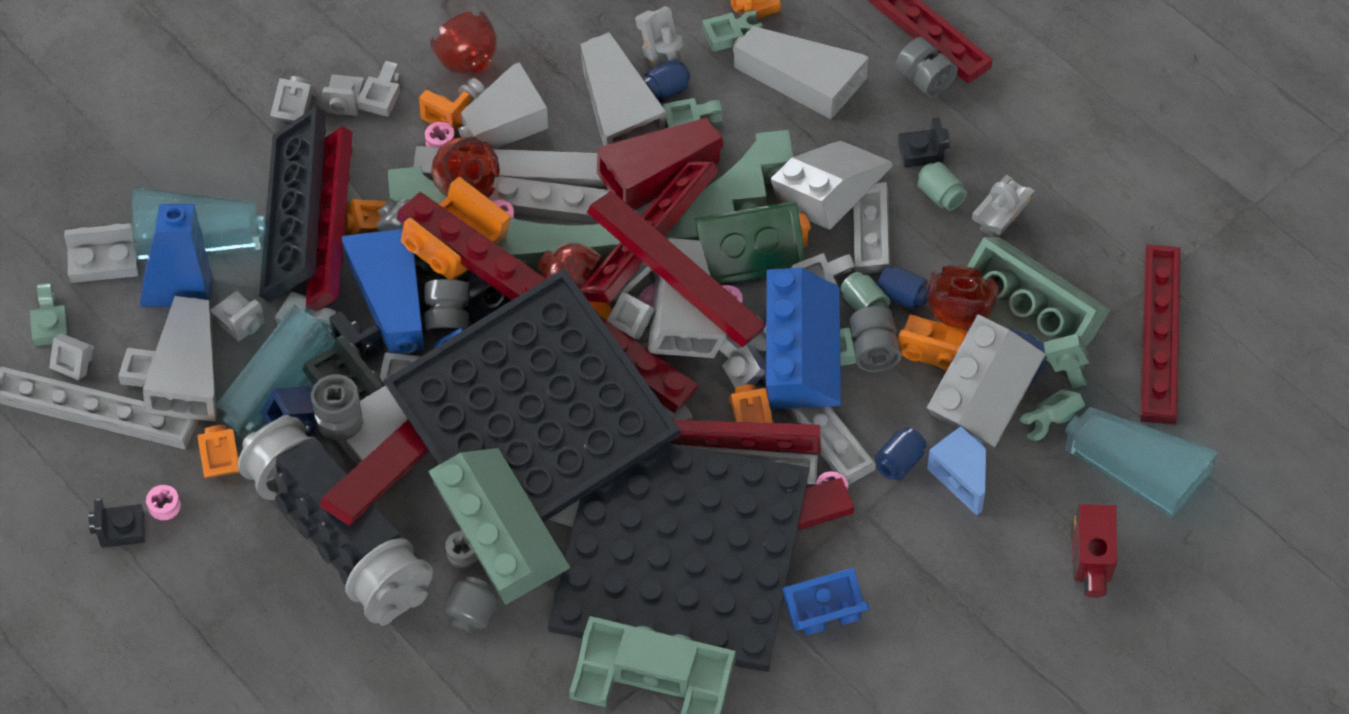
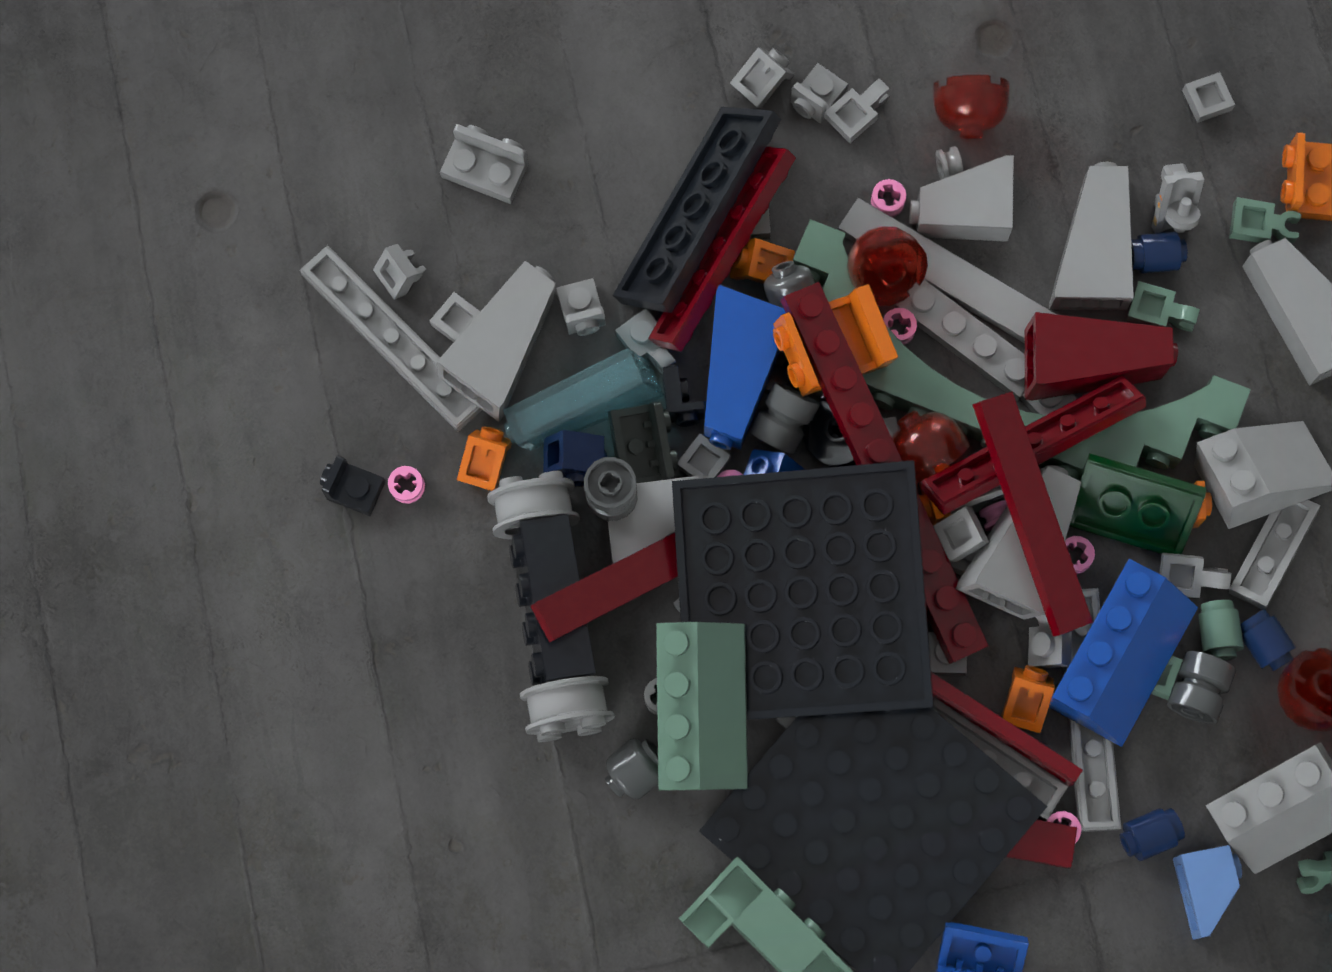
camera: 30 degrees right, 20 degrees up
(49, 319) = (397, 215): sand green plate -> none
(176, 258) = (543, 227): blue slope -> none
(224, 222) = (585, 177): clear light blue slope -> none
(440, 109) = (905, 168): orange bracket -> none
(930, 341) = (1261, 720): orange bracket -> none

